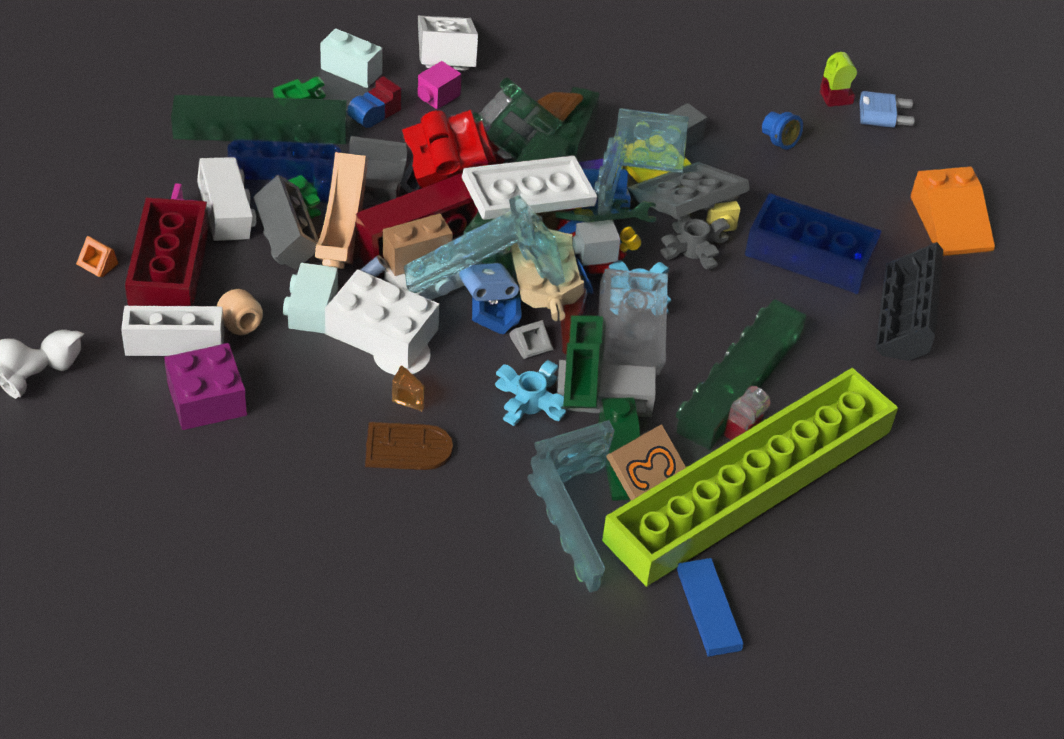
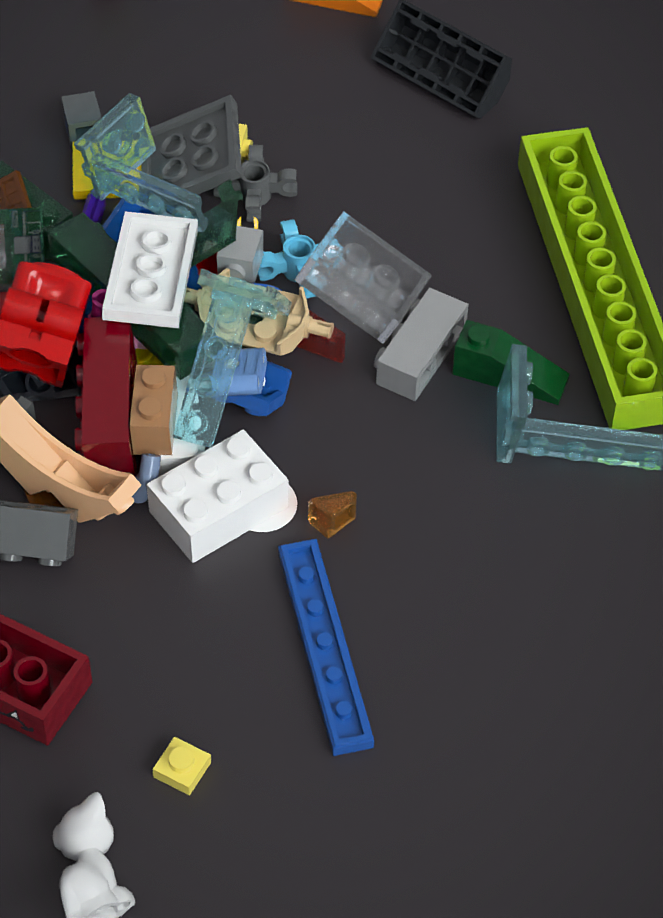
camera: 60 degrees left, 5 degrees up
(146, 385) = (182, 765): none -> light yellow plate
(171, 329) = (128, 702): white brick -> none
(205, 386) = (228, 701): magenta brick -> none
(240, 311) = (126, 628): light nougat head -> none
(289, 430) = (325, 648): none -> blue tile
(311, 293) = (144, 550): light aqua brick -> none
(407, 446) = (401, 548): reddish brown window -> none
(530, 392) = (395, 407): medium azure pin -> none
(531, 339) = (310, 380): light grey slope -> none
(584, 361) = (409, 335): dark green slope -> none
(646, 462) = (553, 351): medium nougat tile -> none
(744, 365) = (460, 229): clear green brick -> none
(747, 412) = (527, 244): clear leg -> none
(783, 129) = (138, 44): blue piece -> none
(812, 243) = (323, 93): clear blue brick -> none

